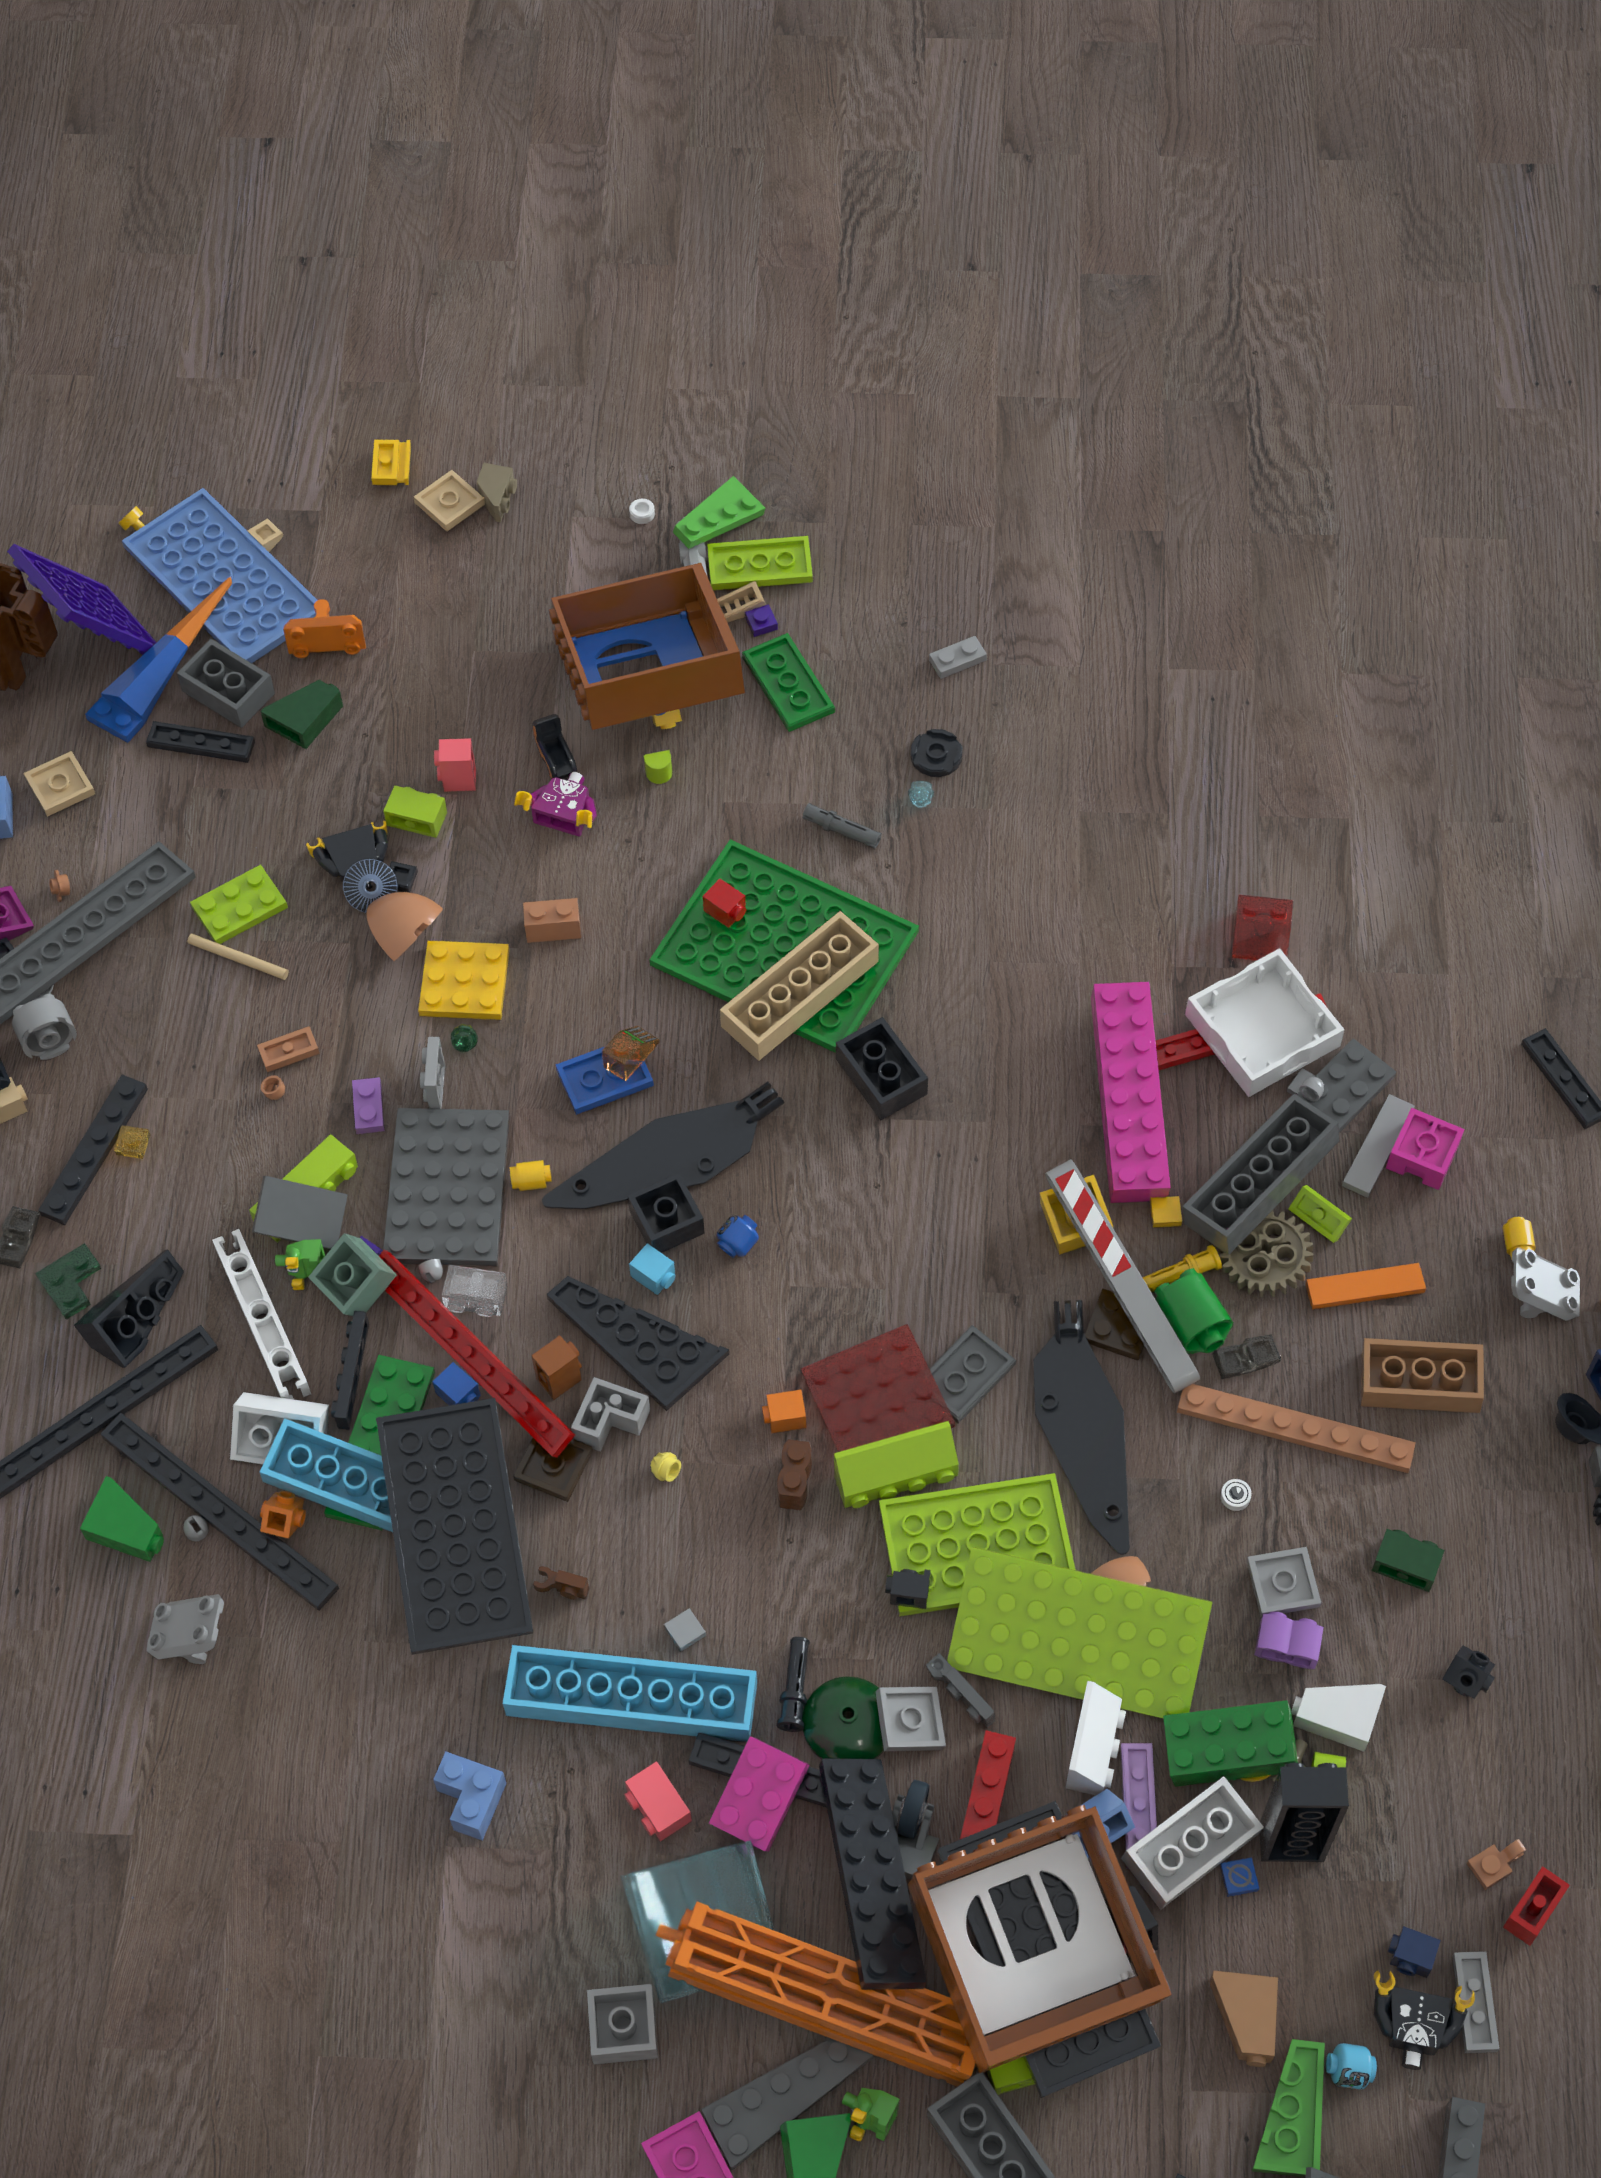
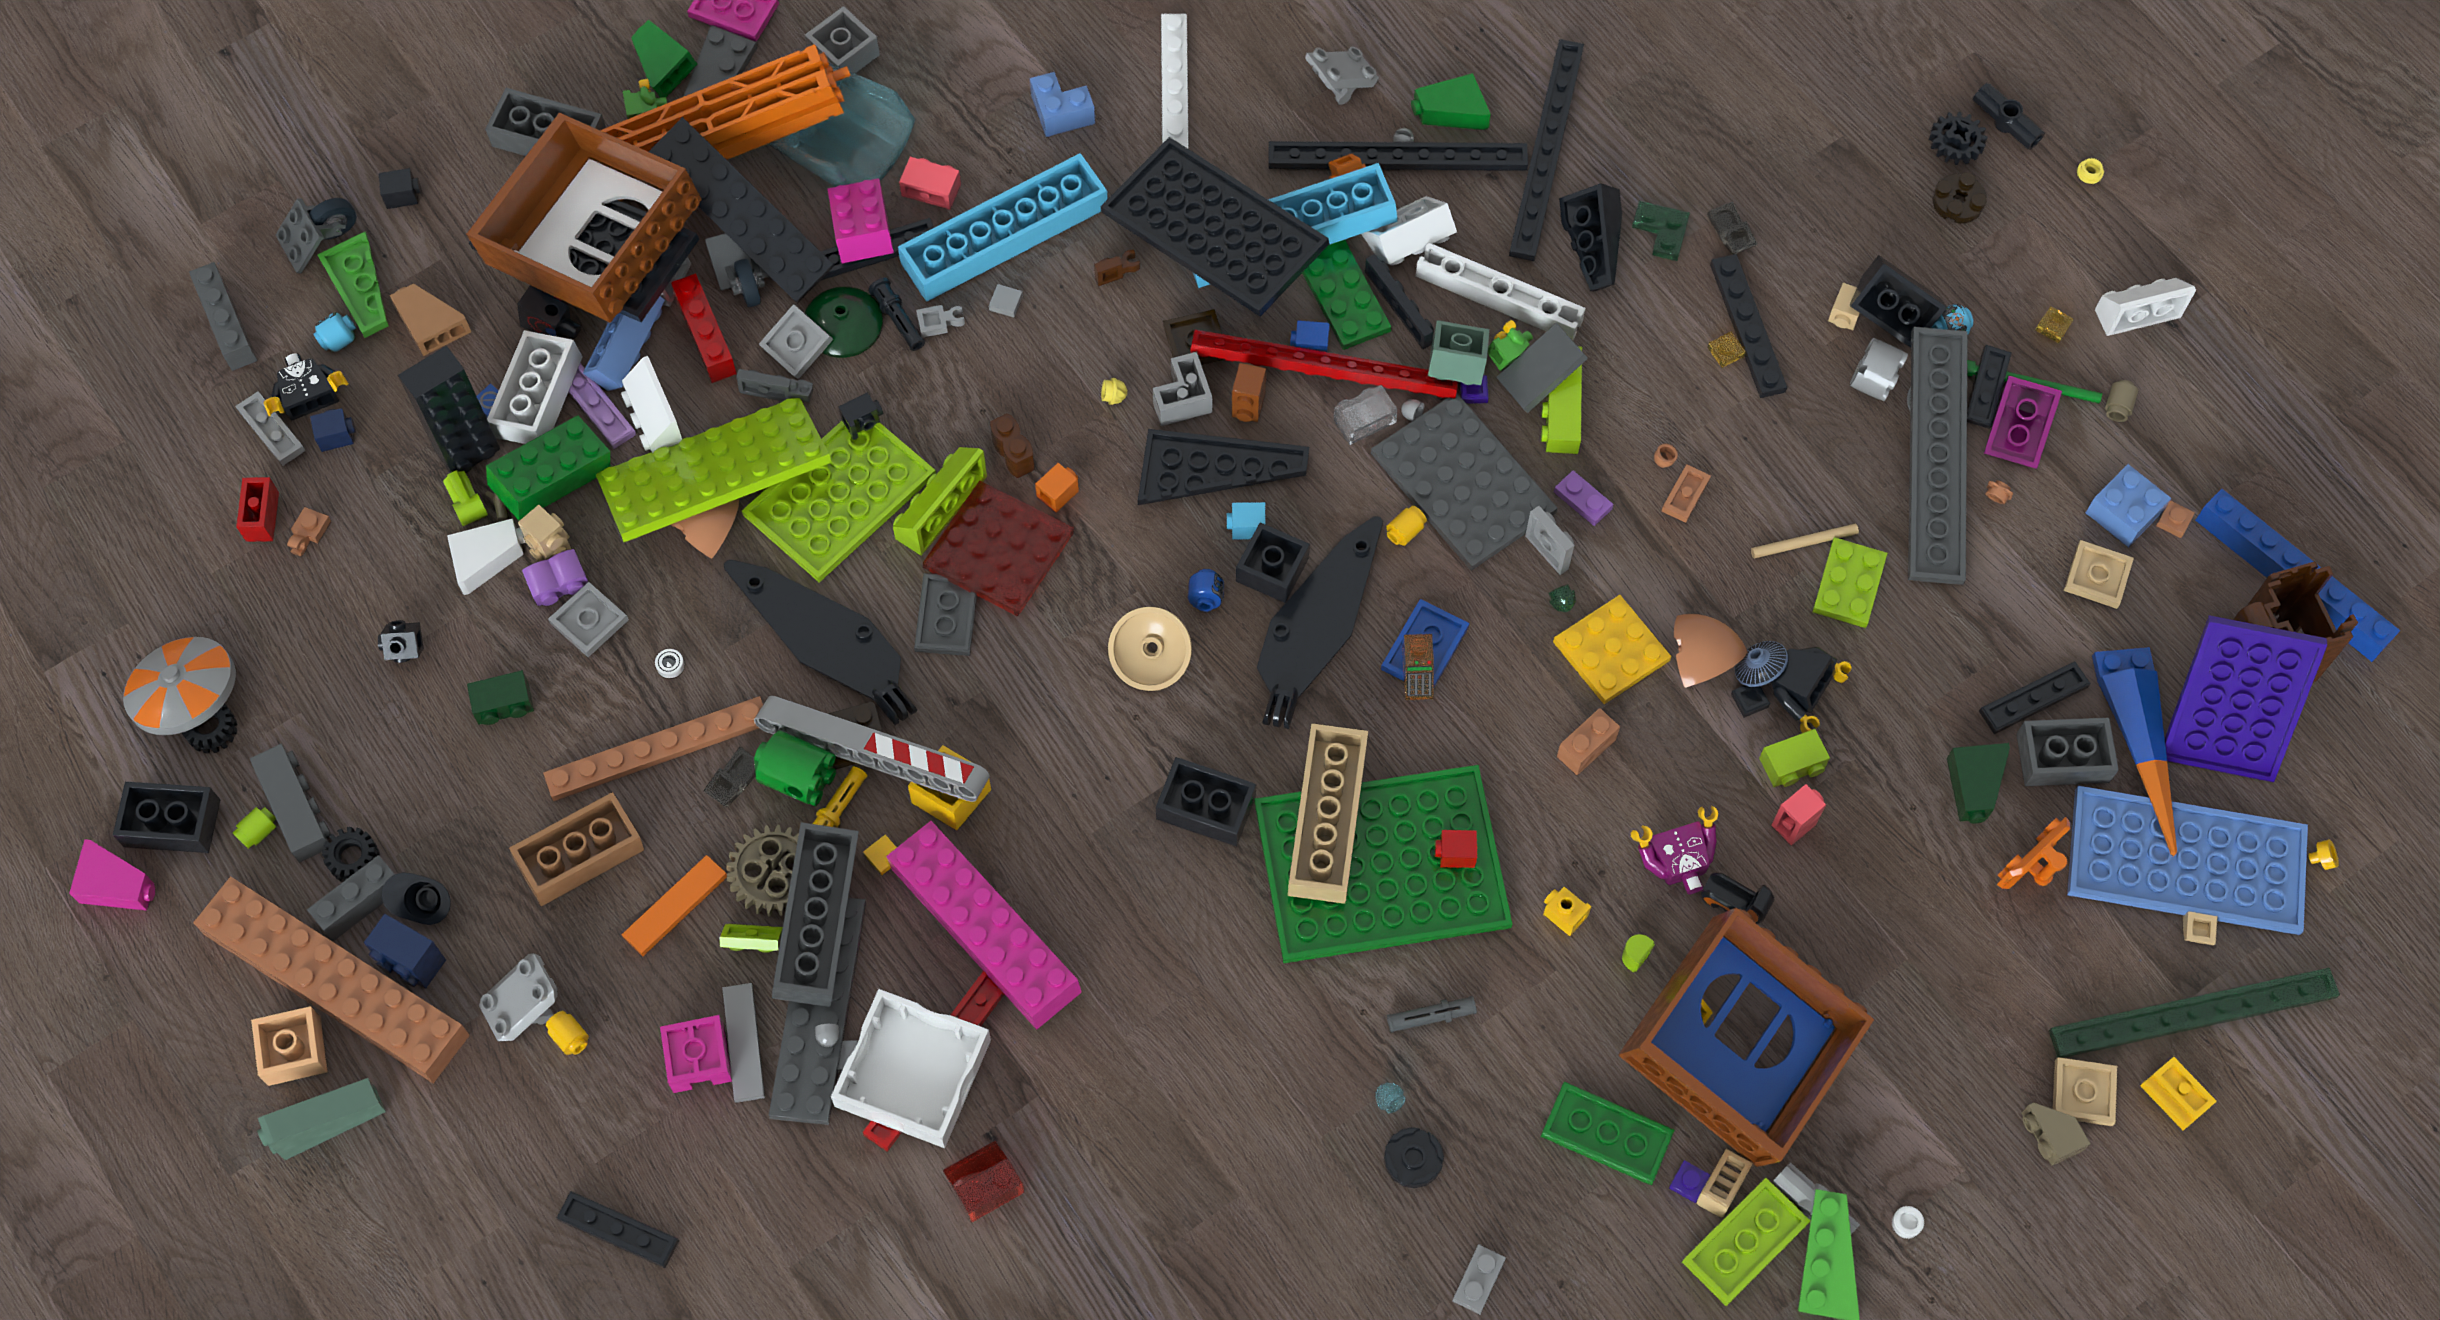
camera: 140 degrees right, 5 degrees up
(328, 495) = (2193, 1013): none -> clear green plate
(348, 1736) = (1174, 78): none -> white plate
(681, 824) = (1566, 919): none -> yellow brick
(765, 1652) = (935, 320): none -> light grey plate
(826, 1212) = (1134, 660): none -> tan dish
(1276, 1674) = (544, 534): none -> tan brick

